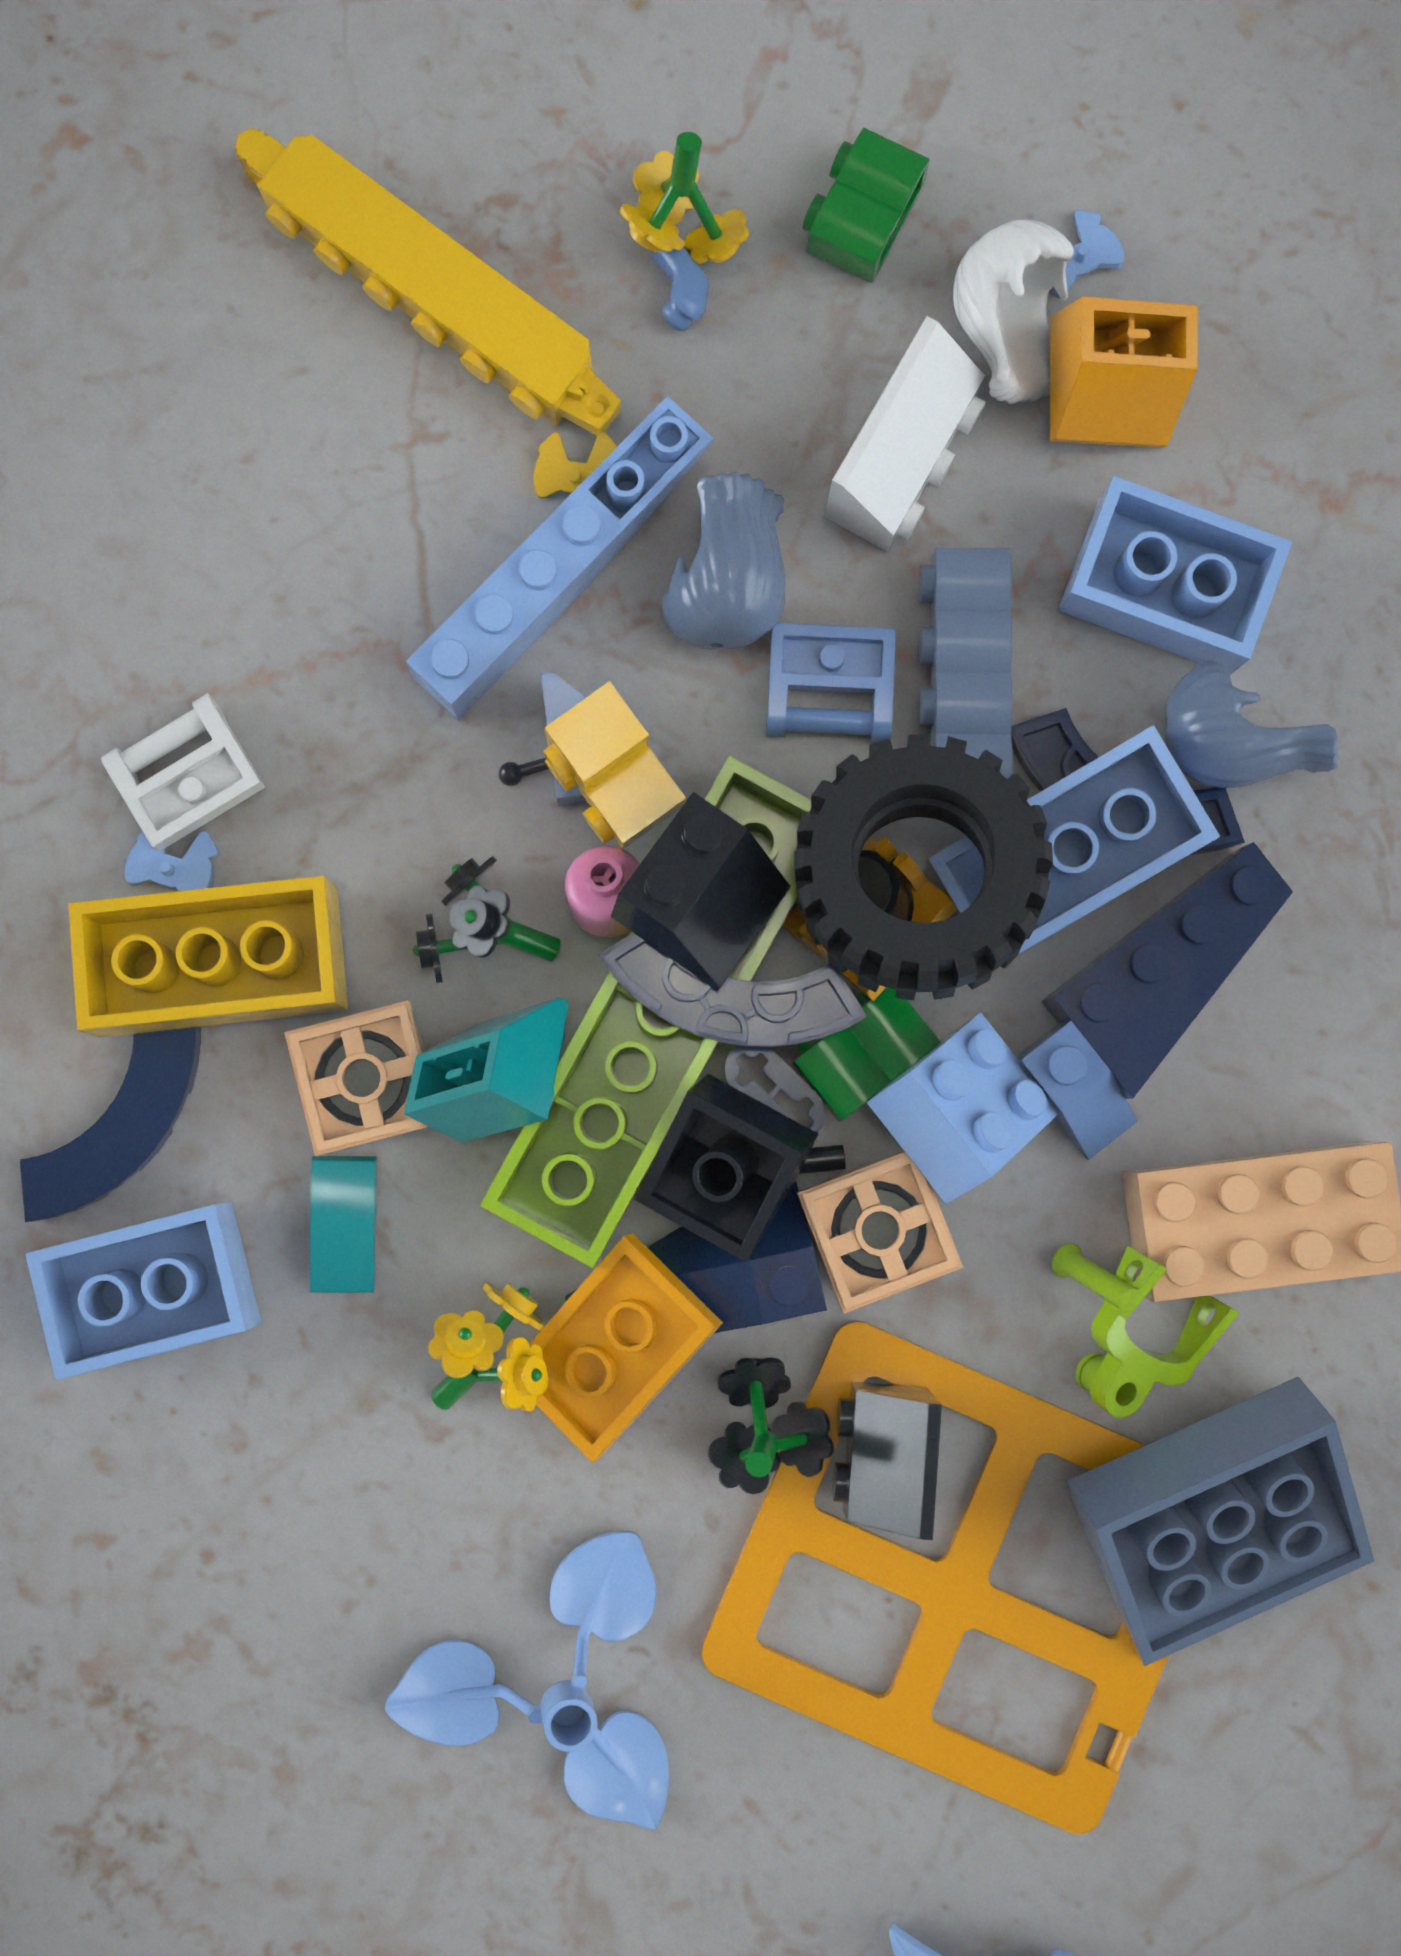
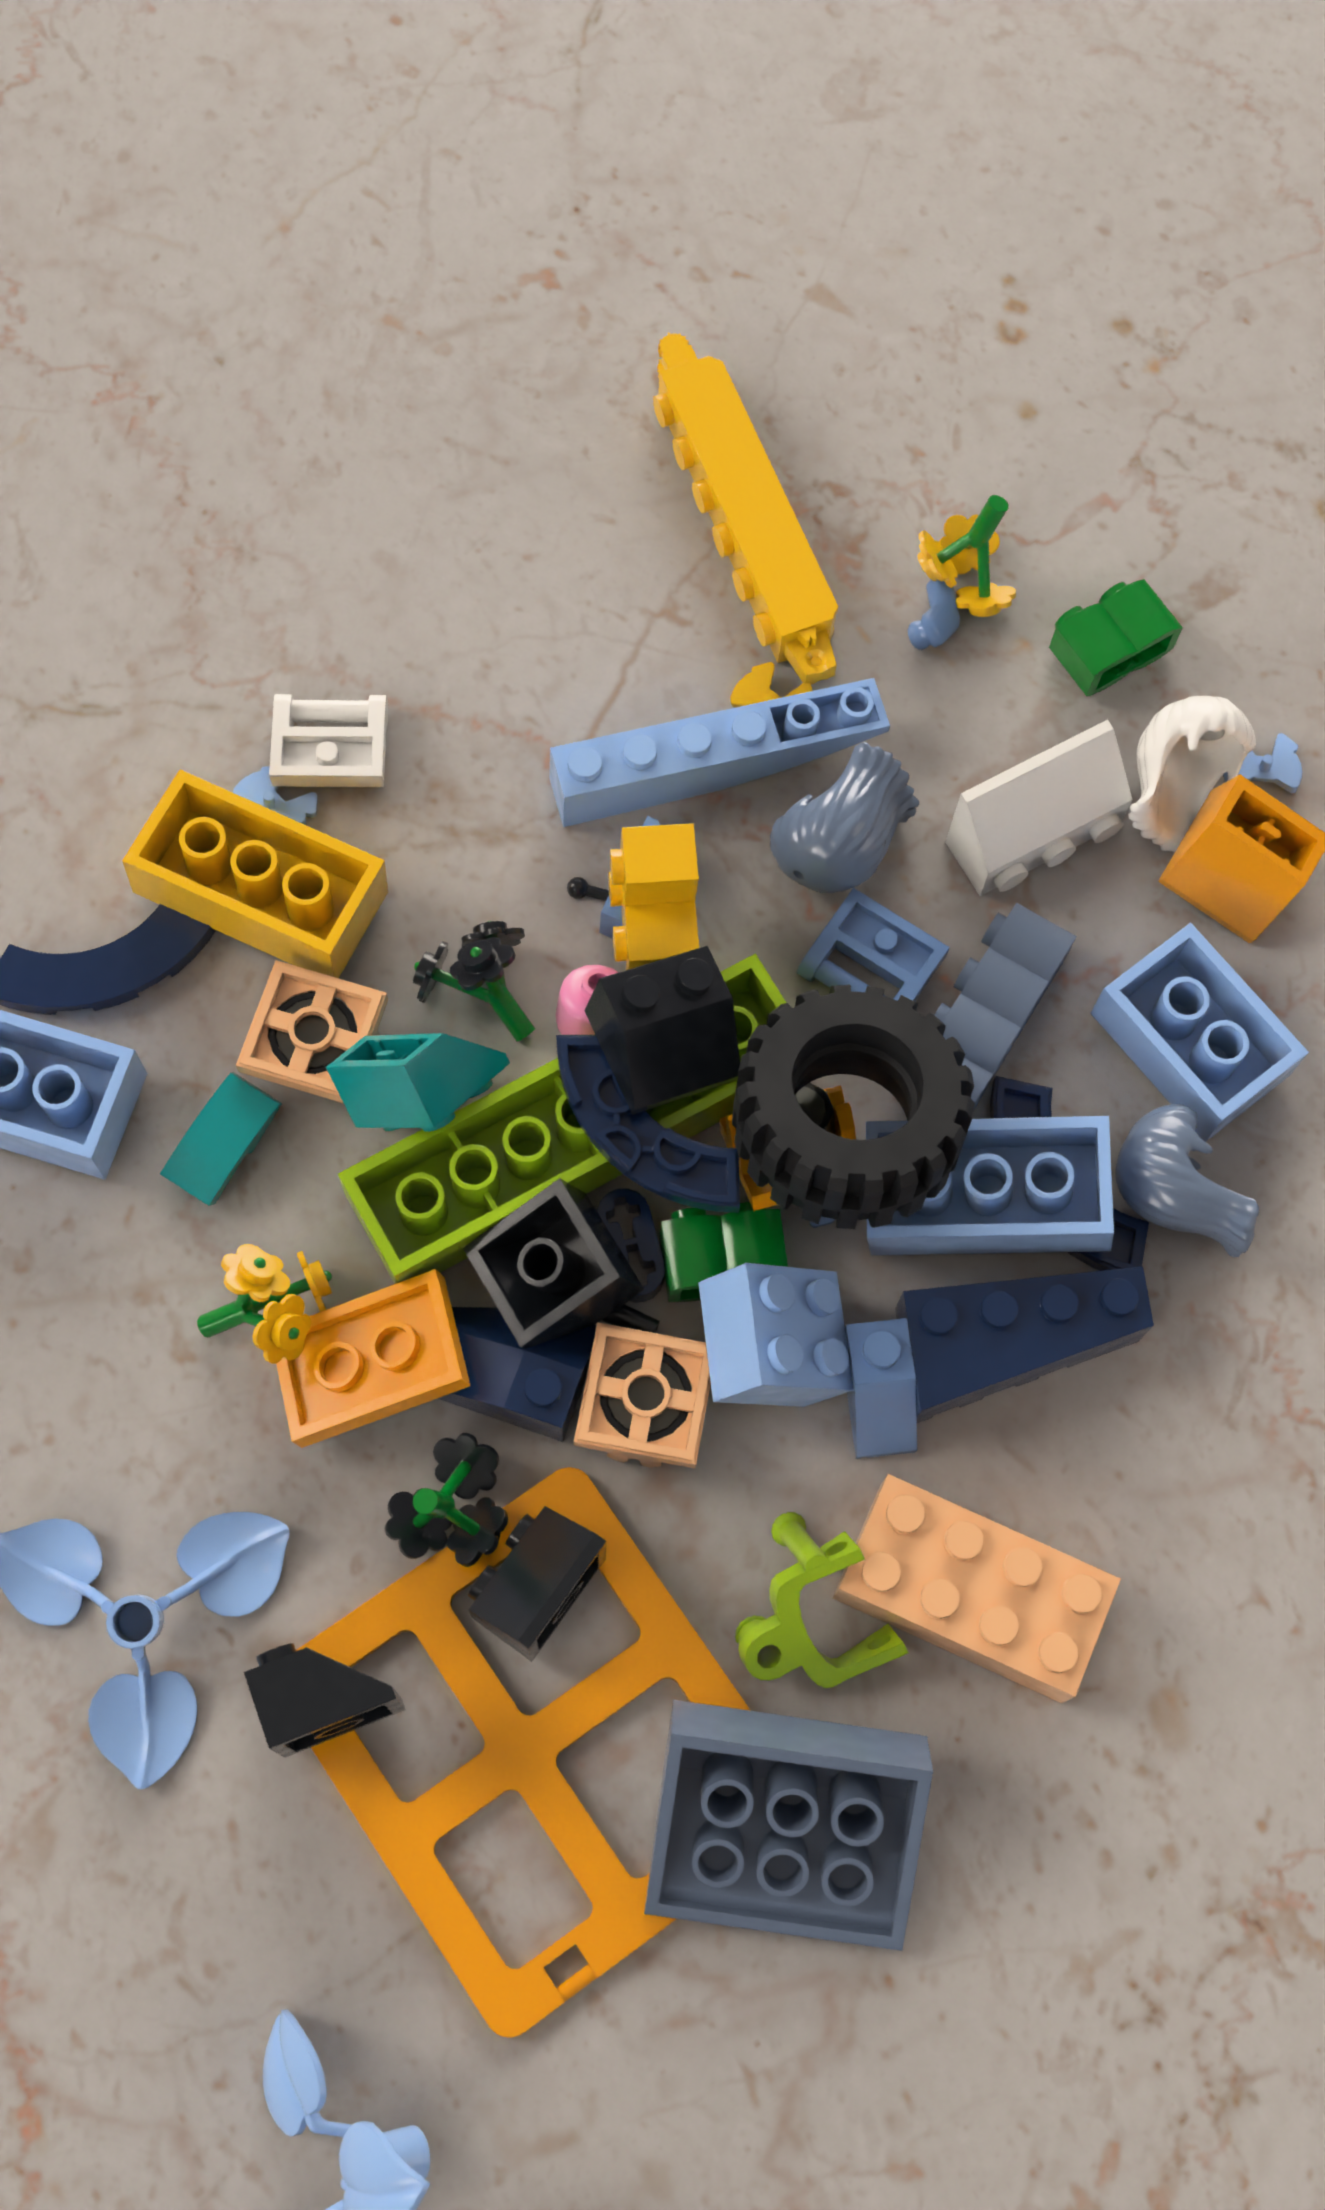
camera: 30 degrees right, 15 degrees down
(766, 1678) = (313, 1698): none -> black slope

